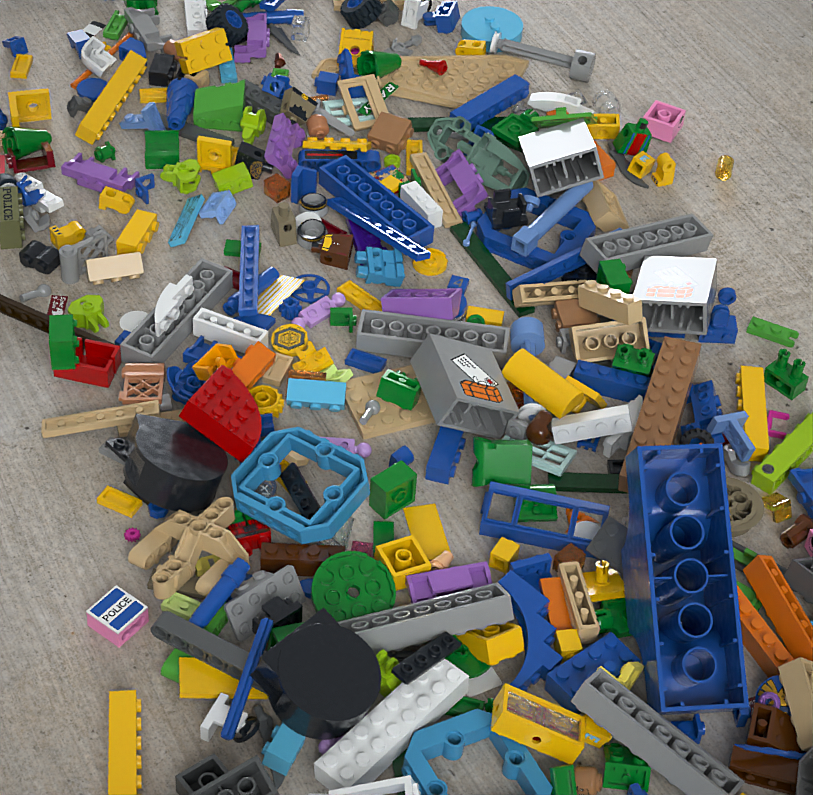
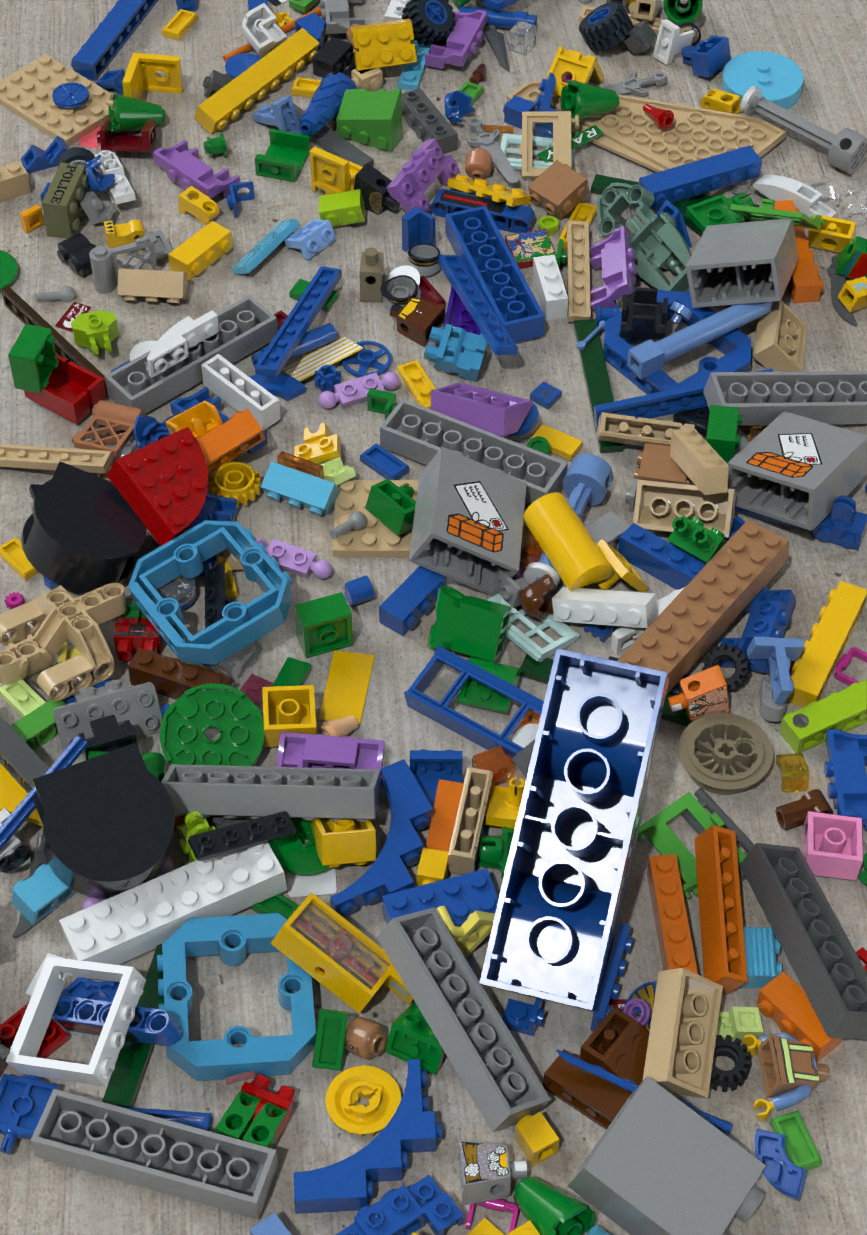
camera: 25 degrees right, 5 degrees up
(182, 174) = (287, 191): lime hinge -> none
(229, 581) = (73, 681): blue piece -> none
(252, 124) = (399, 145): lime hinge -> none
(267, 80) = (439, 97): blue bracket -> none
(277, 188) = (389, 229): clear orange brick -> none
(279, 370) = (282, 441): tan tile -> none
(288, 338) = (306, 413): yellow tile -> none
(297, 106) = (460, 134): dark tan torso -> none
(391, 183) = (525, 252): yellow tile -> none
(434, 266) = (529, 361): yellow tile -> none
(503, 554) = (417, 736): yellow brick -> none

